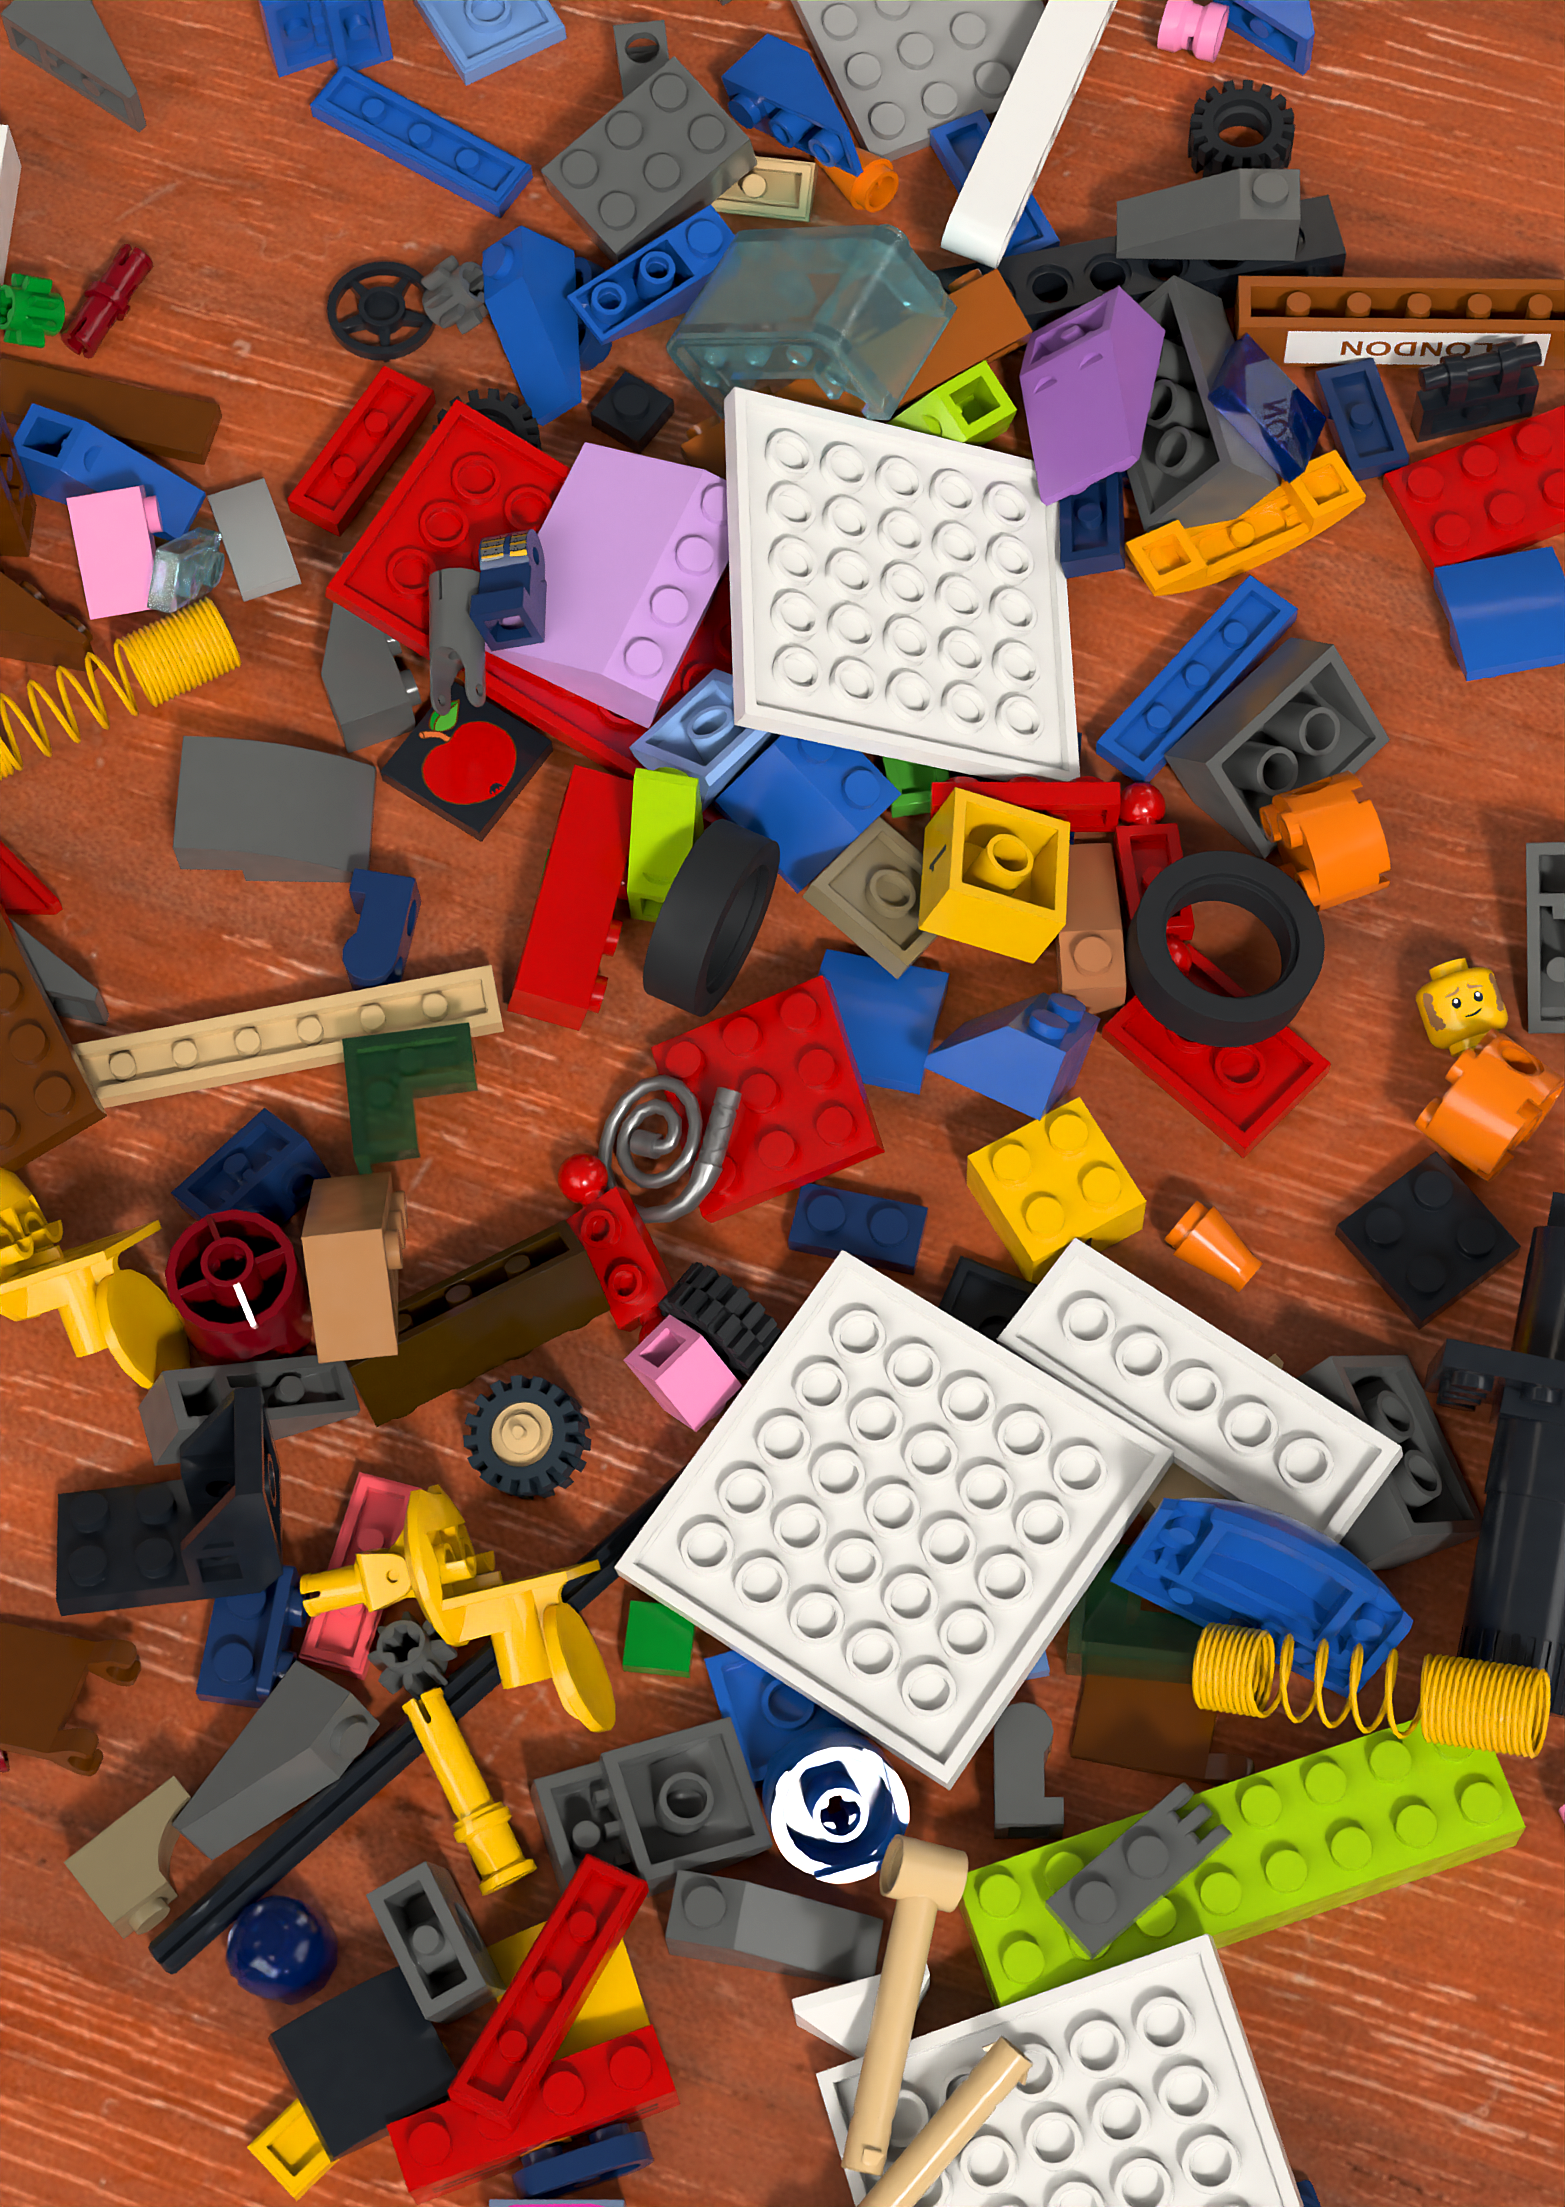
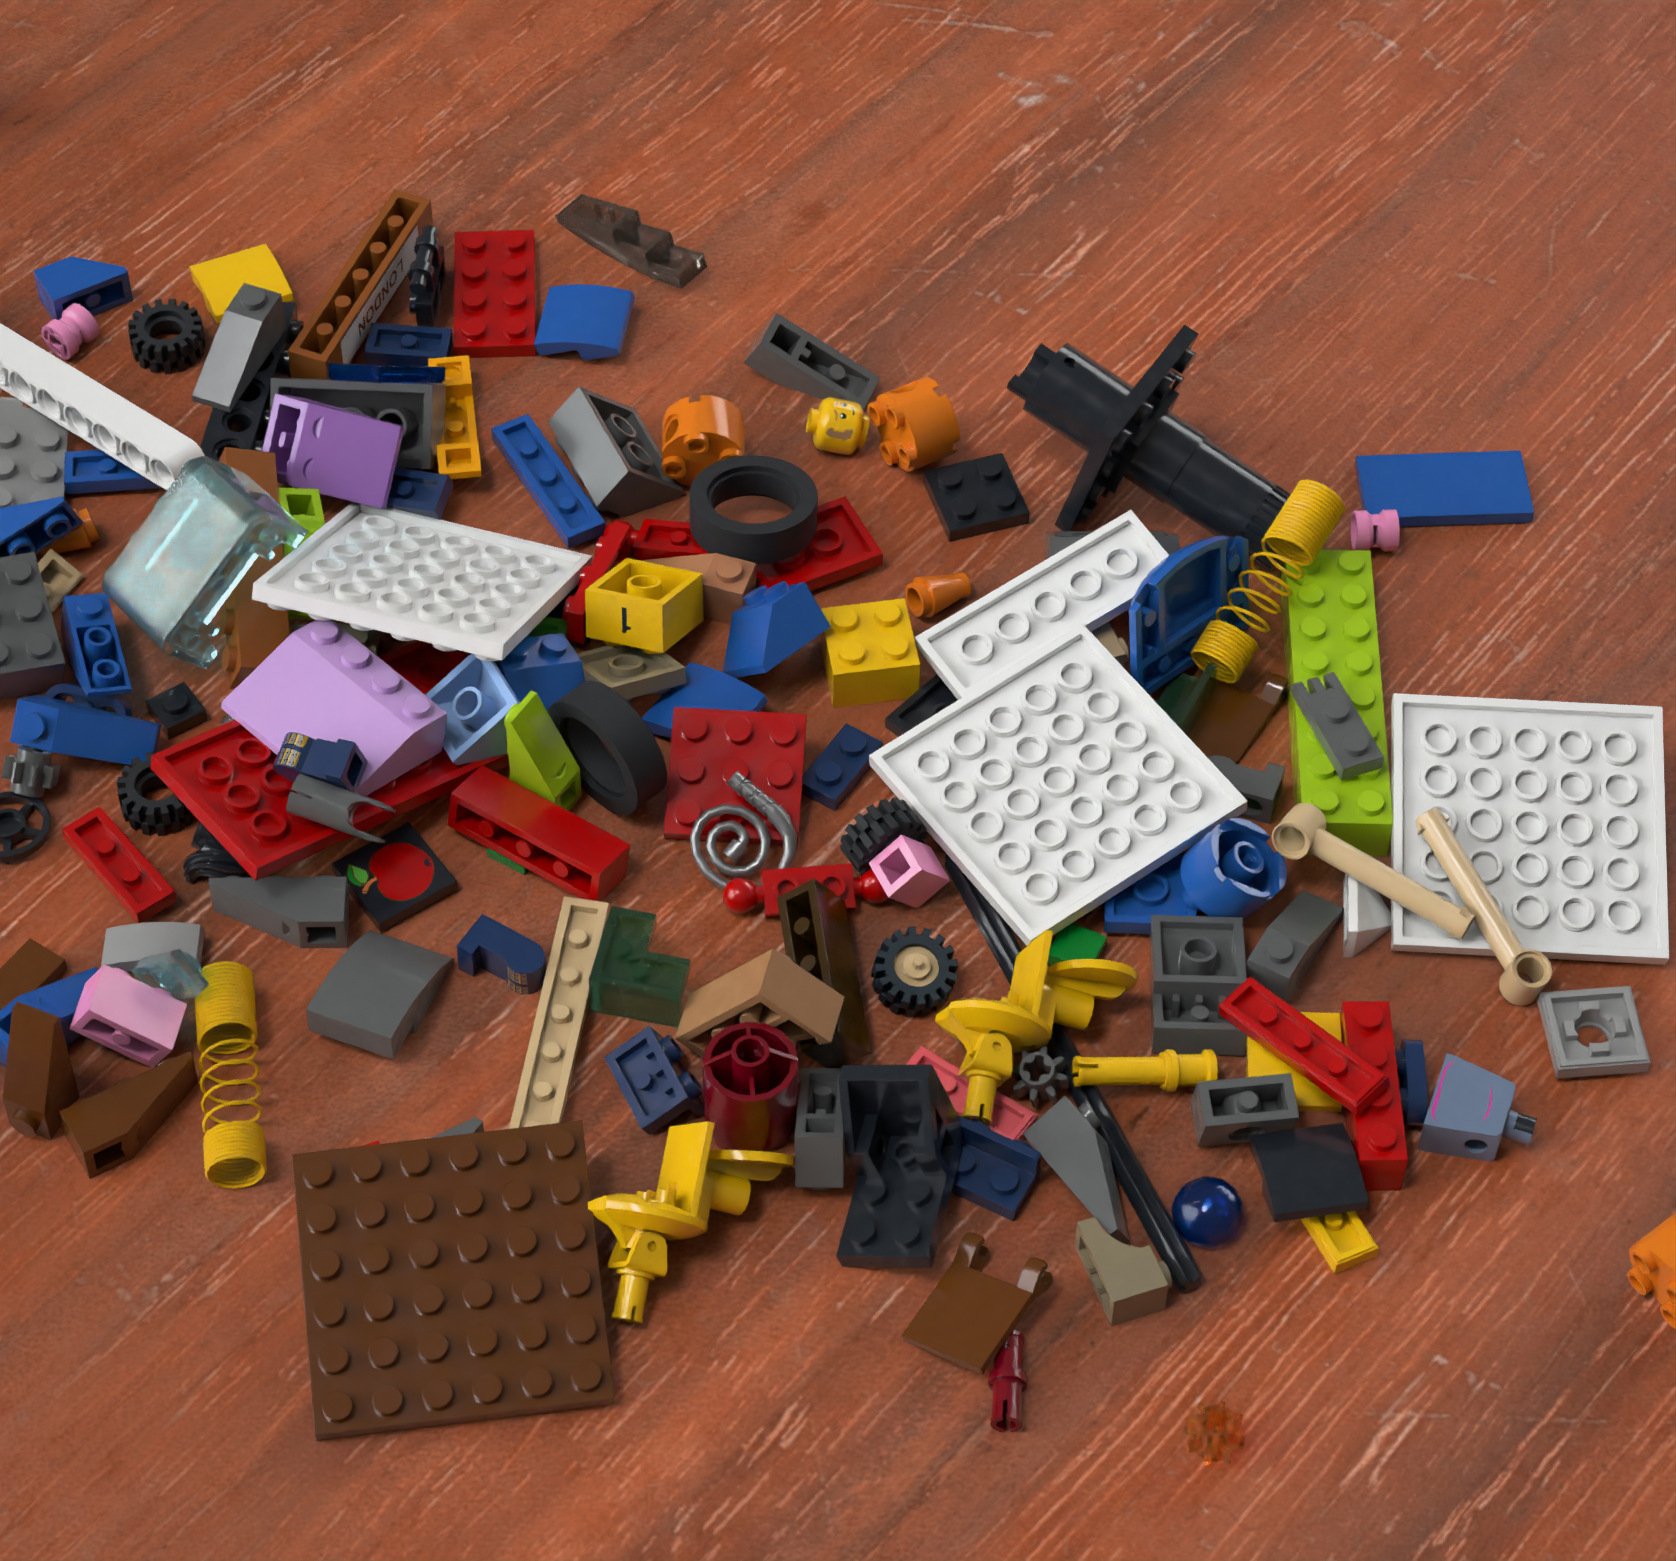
camera: 75 degrees left, 15 degrees down
(1380, 181) = (224, 276): none -> yellow slope

